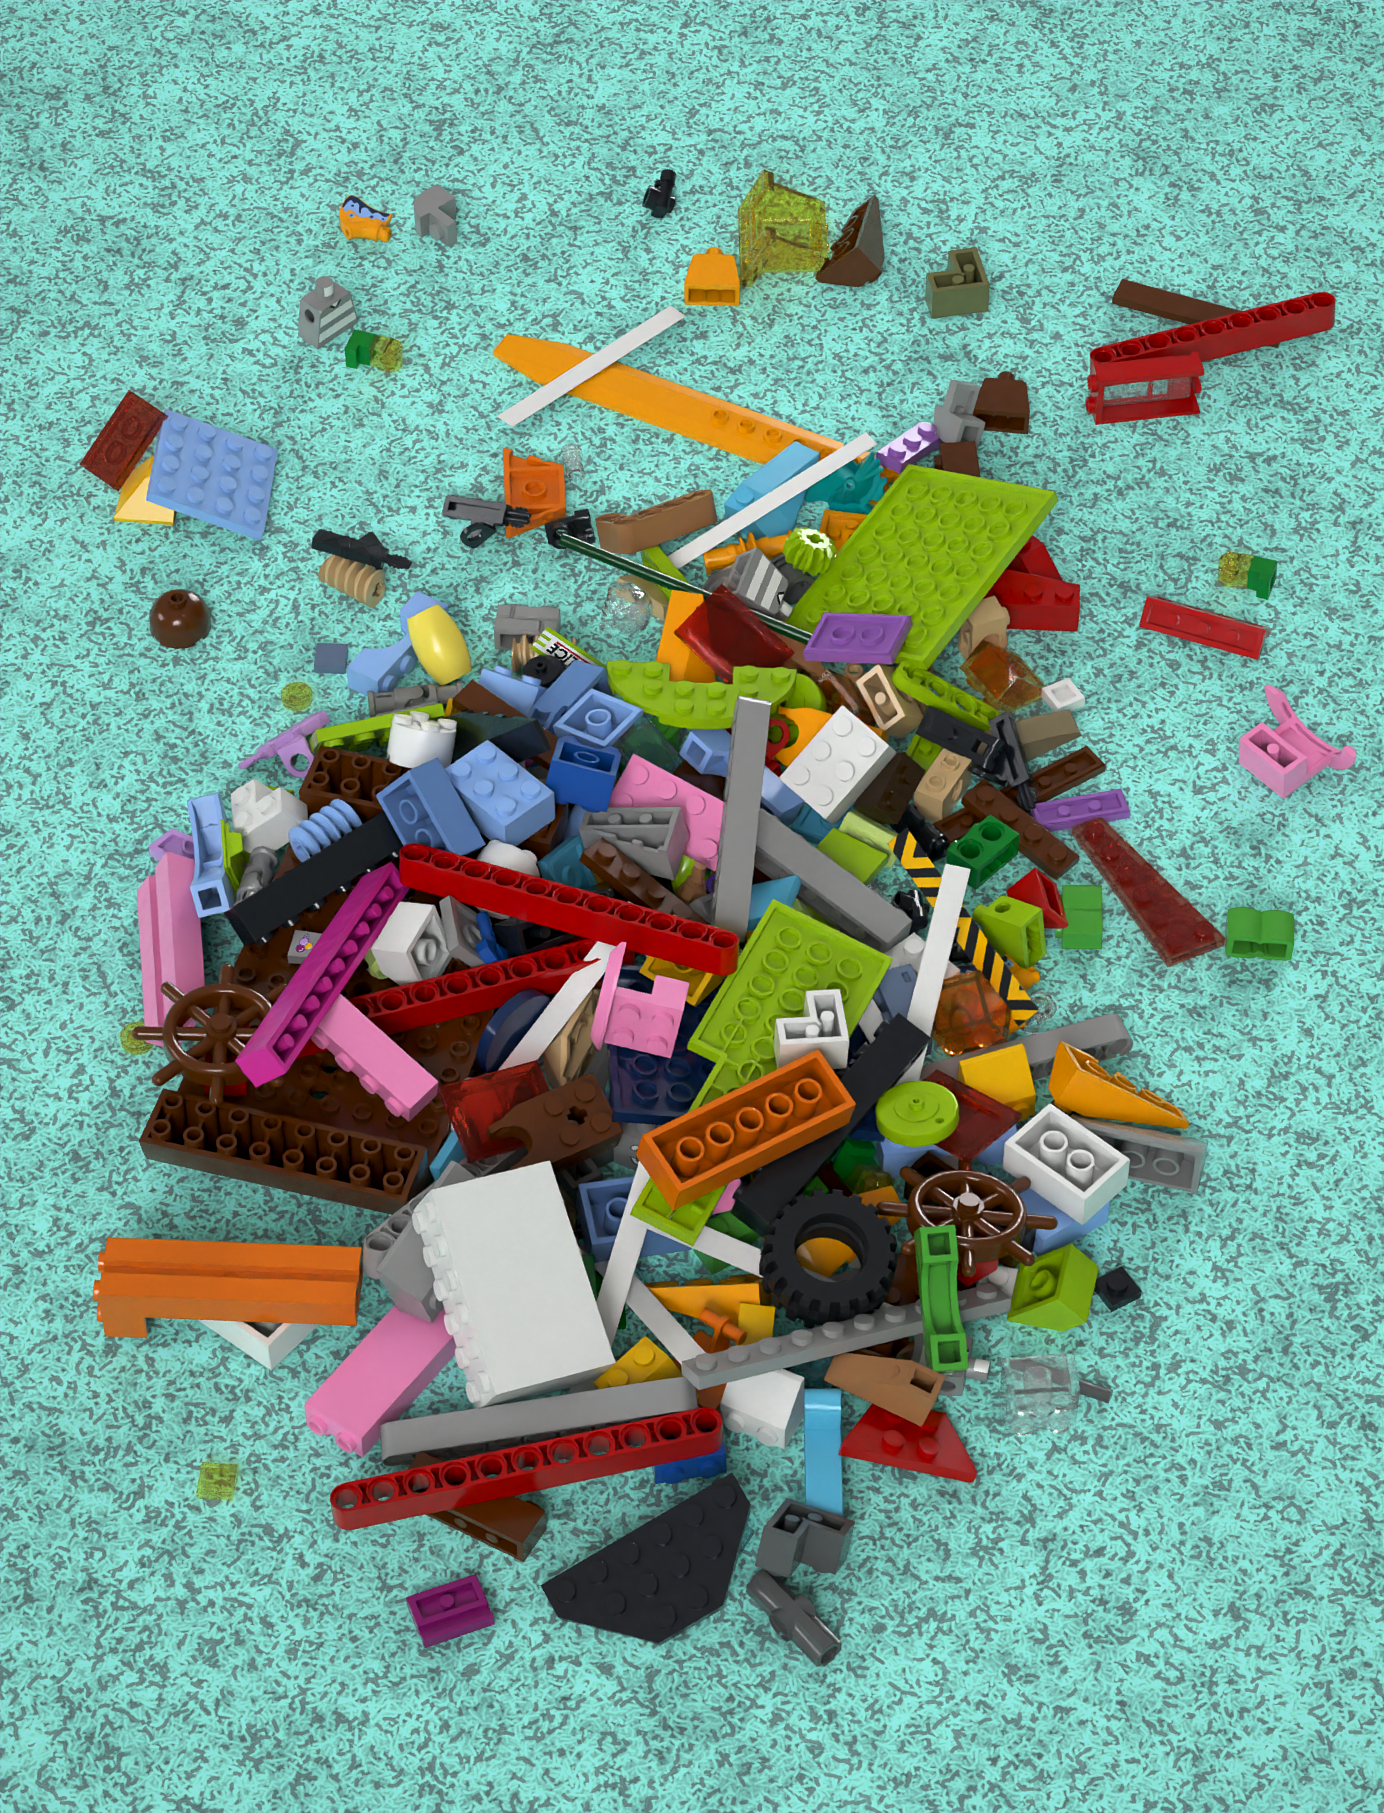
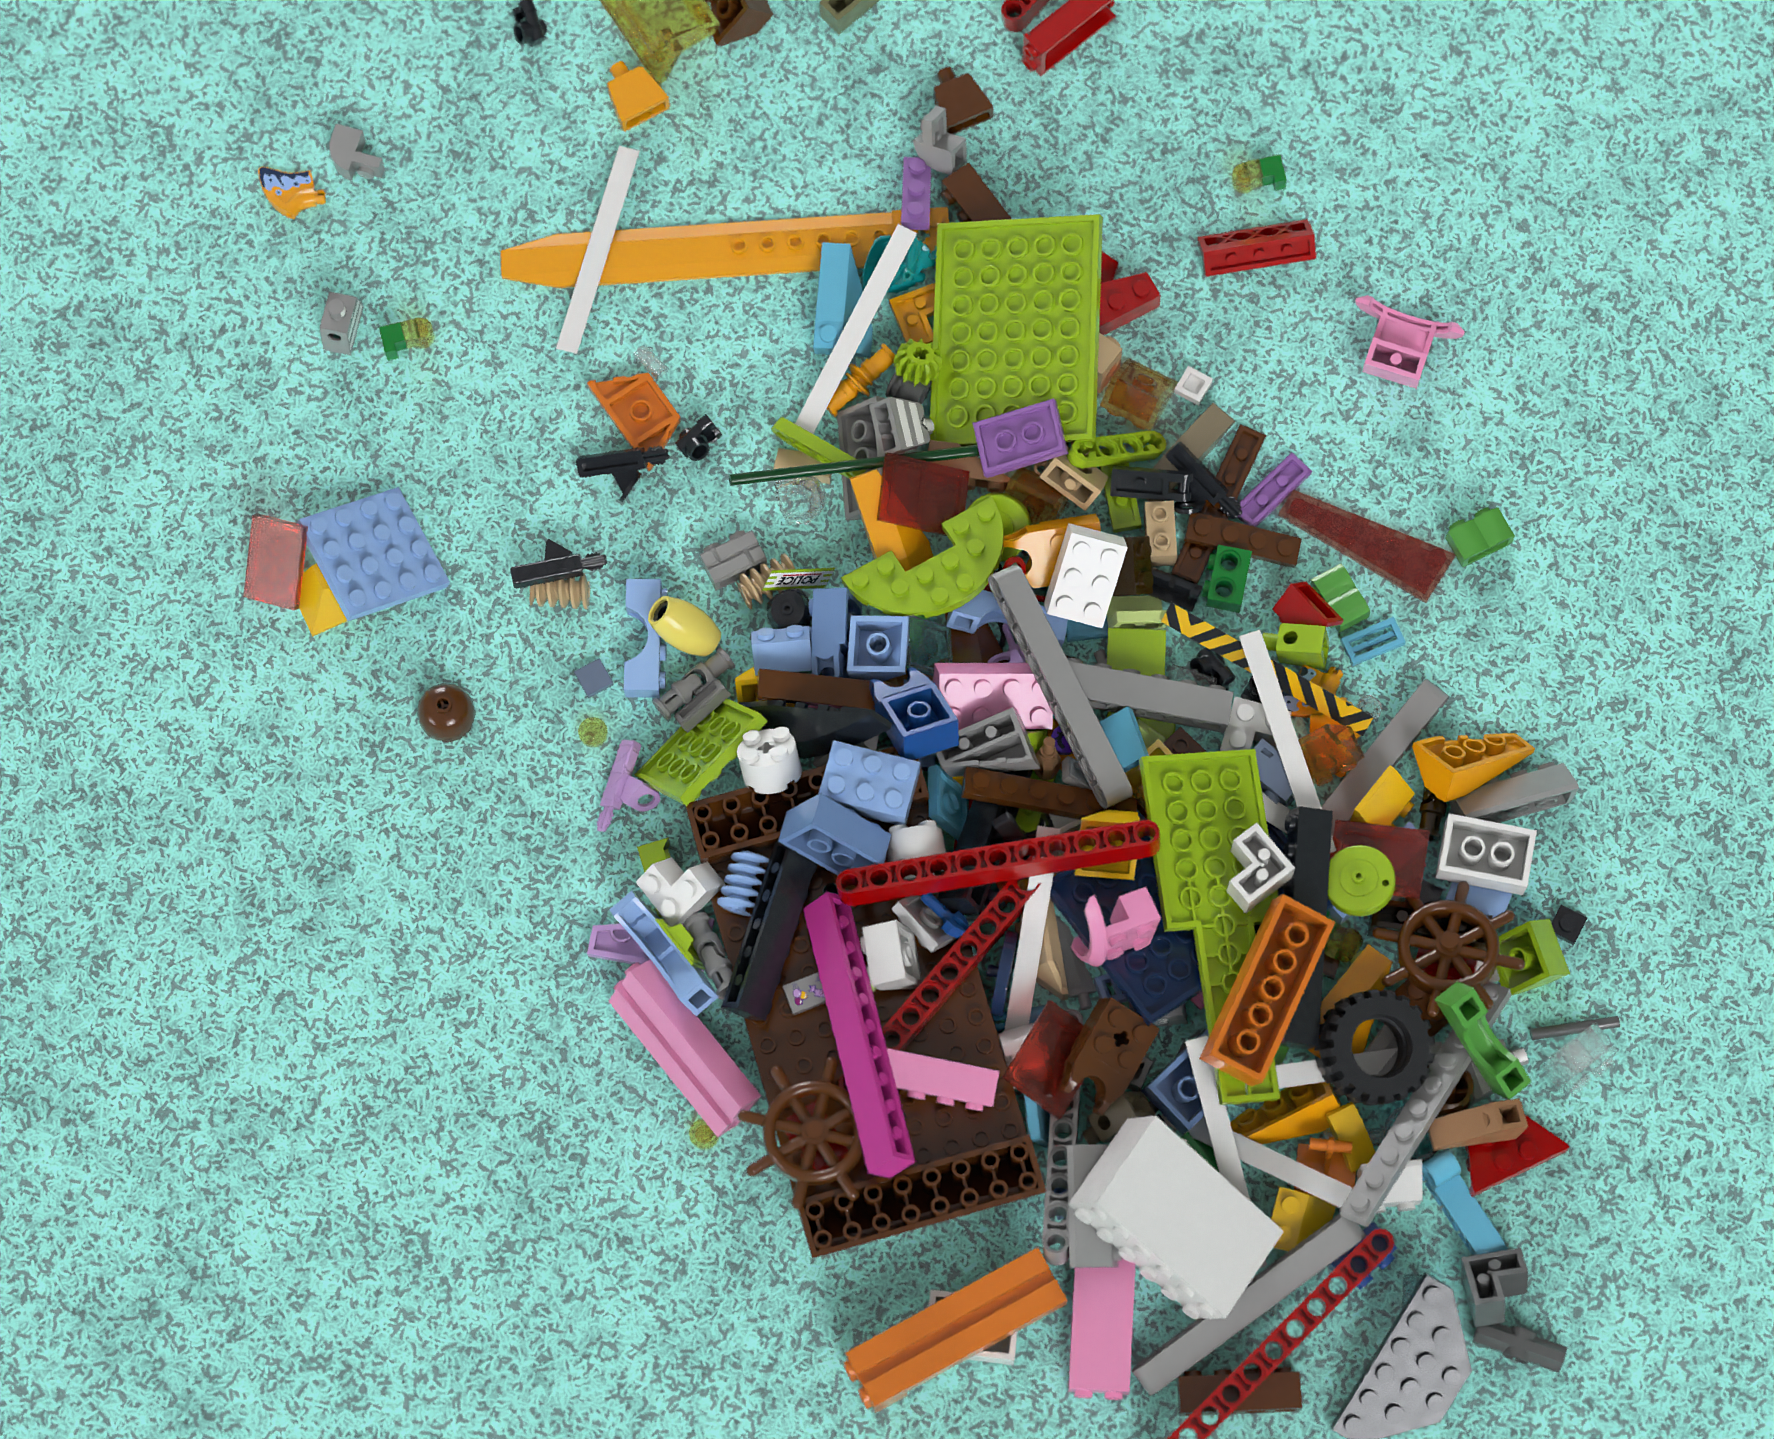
camera: 30 degrees left, 25 degrees up
(656, 524) = (770, 397): medium nougat beam -> none
(1090, 974) = (1350, 651): none -> medium azure tile

